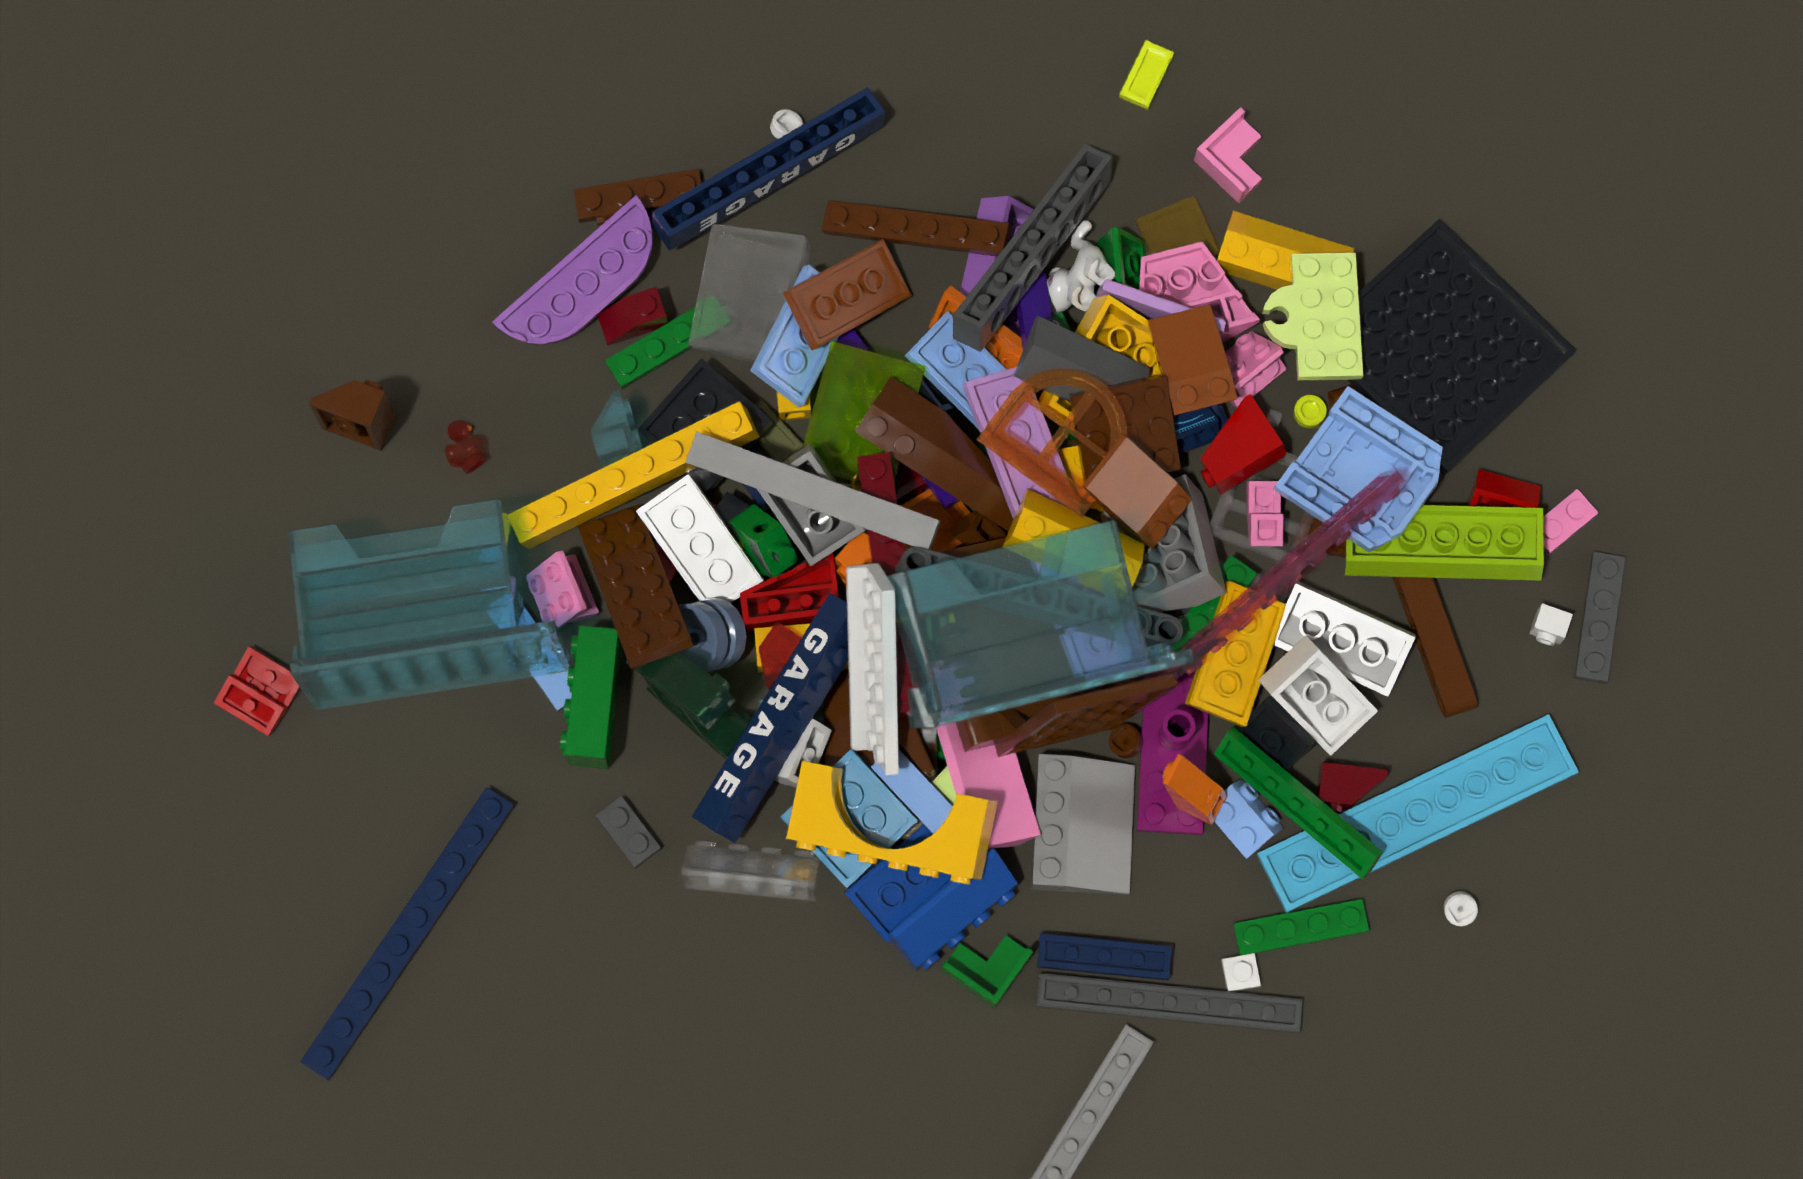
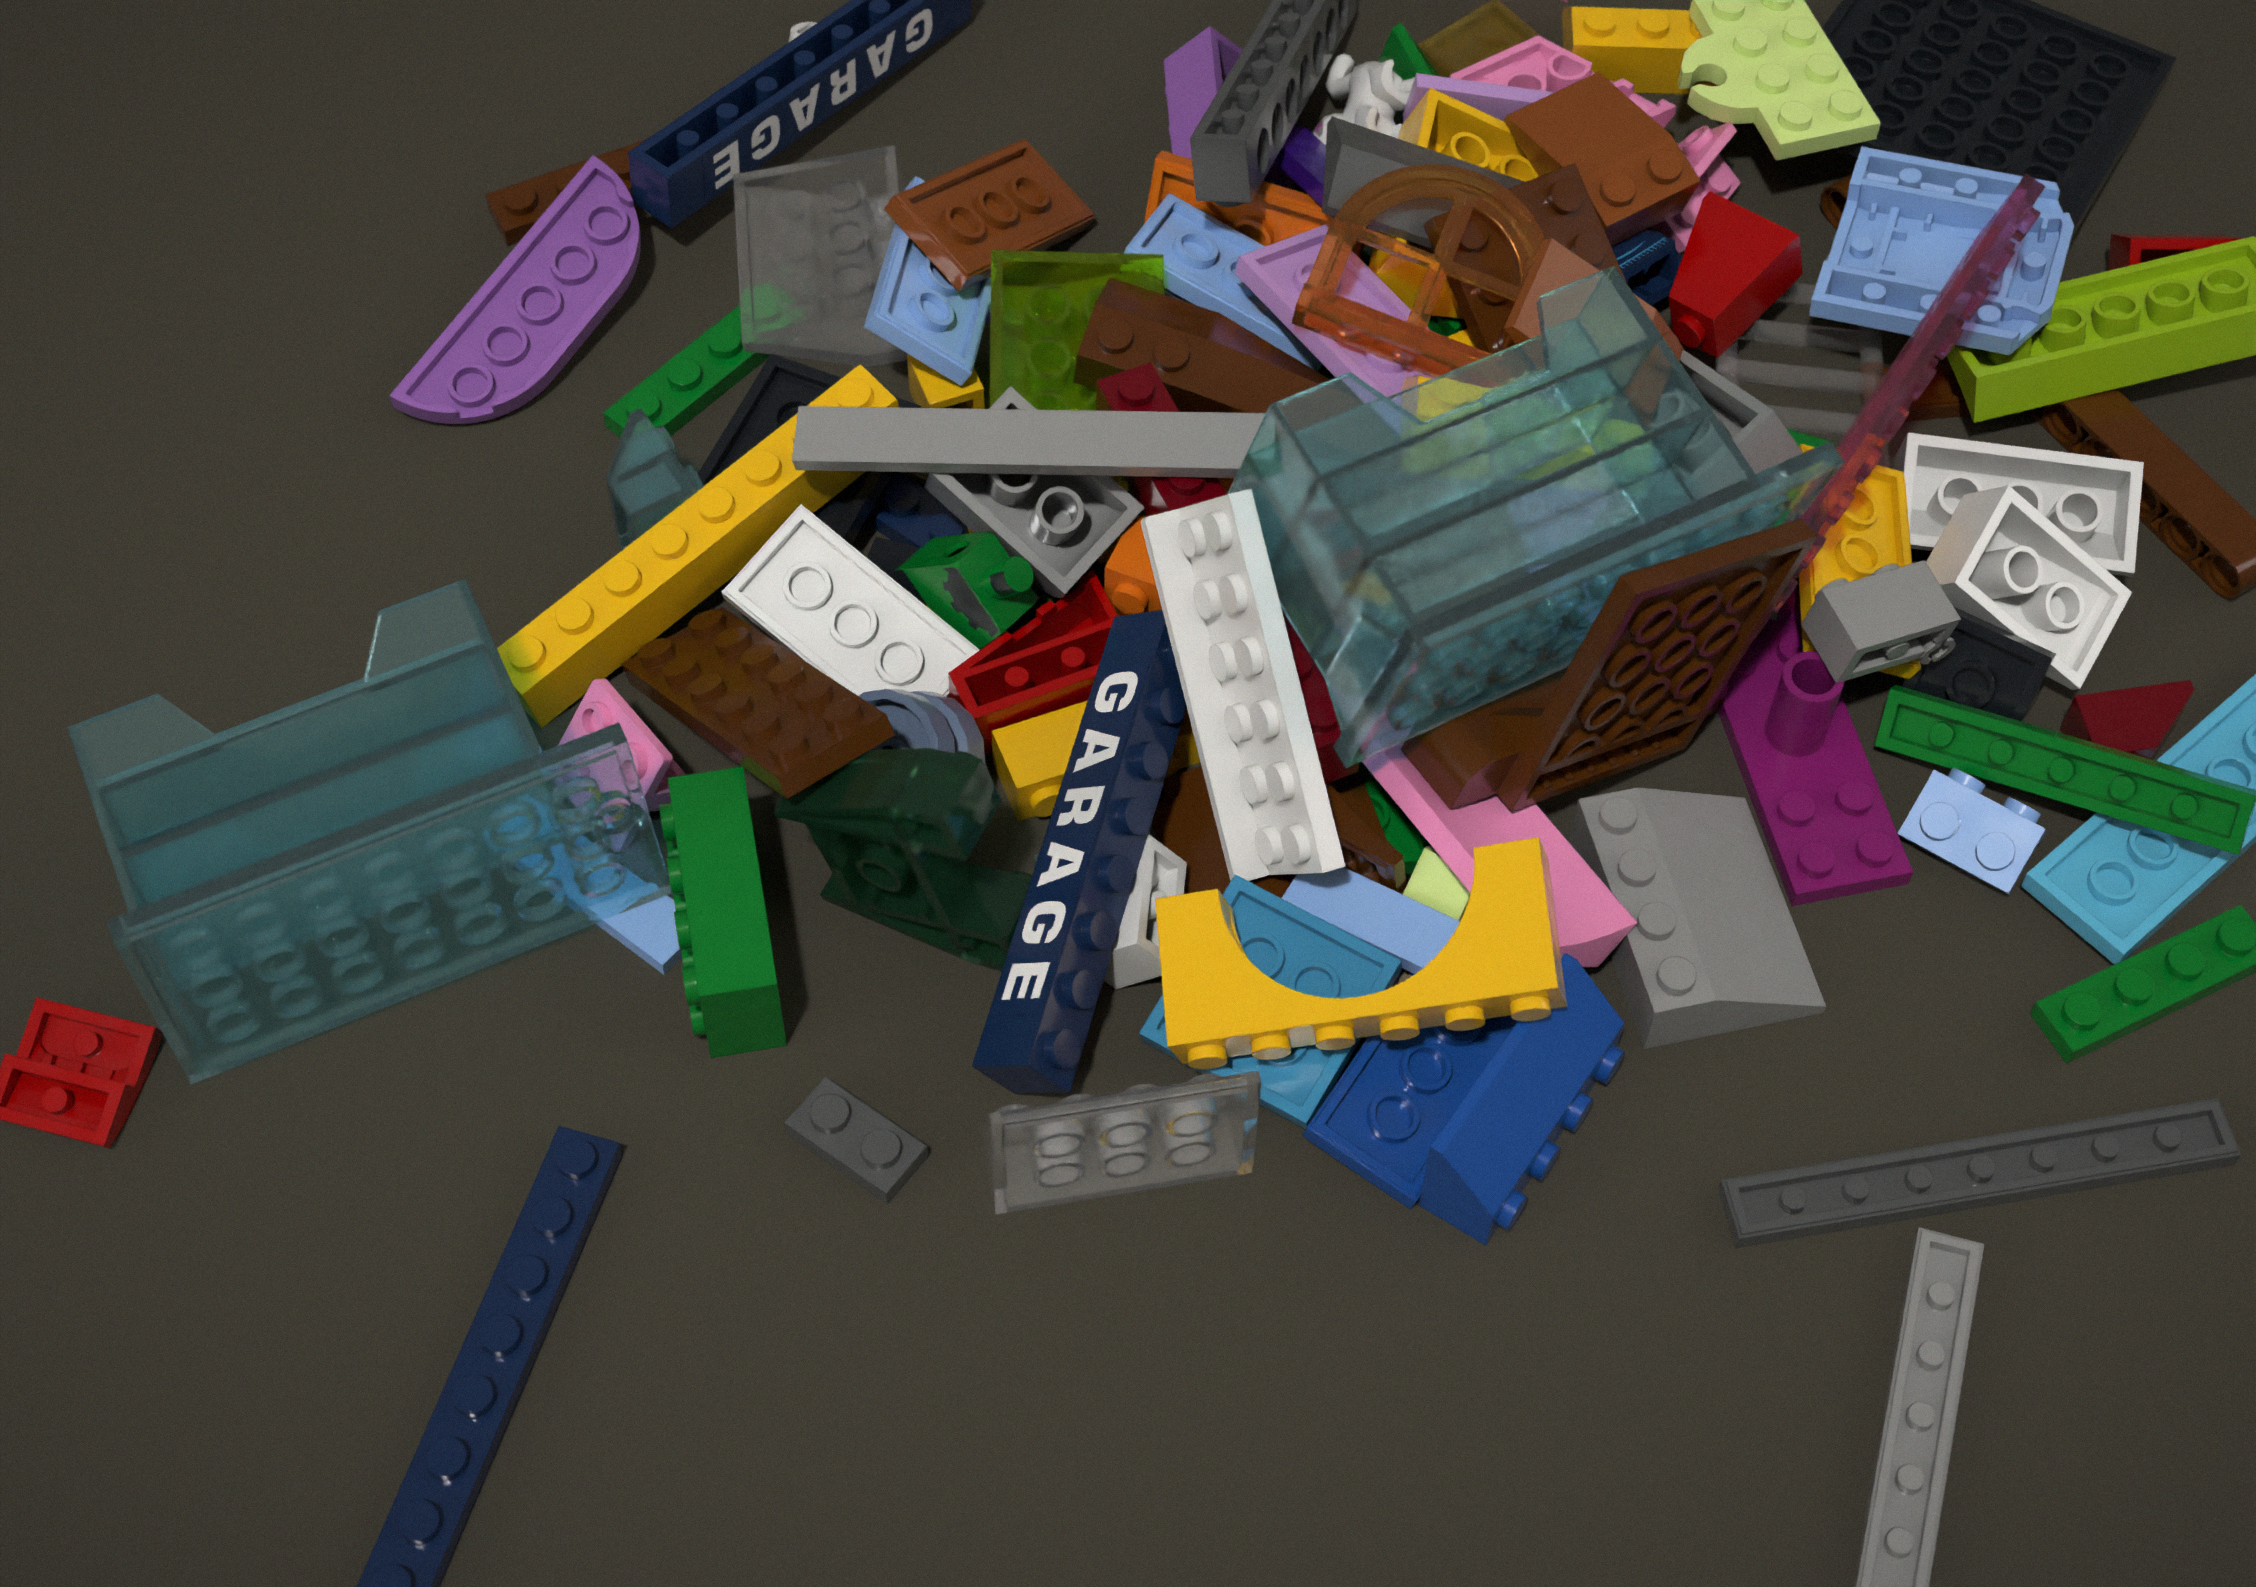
camera: 15 degrees left, 20 degrees down
(356, 412) = (165, 557): reddish brown slope -> none
(468, 449) = (378, 585): clear red animal -> none
(633, 316) = (636, 336): dark red slope -> none
(776, 651) = (1044, 749): clear red tile -> none
(916, 228) = (1072, 110): reddish brown plate -> none
(989, 978) = (1624, 1219): green panel -> none
(1104, 957) = (1828, 1119): dark blue plate -> none
(1125, 741) = (1715, 761): reddish brown tile -> none
(1193, 790) = (1882, 772): orange slope -> none
(1223, 707) = (1881, 621): none -> light grey hinge
(1241, 973) = (2085, 1084): white plate -> none
(1264, 514) = (1800, 361): bright pink slope -> none
(1309, 411) = (1811, 225): neon yellow tile -> none

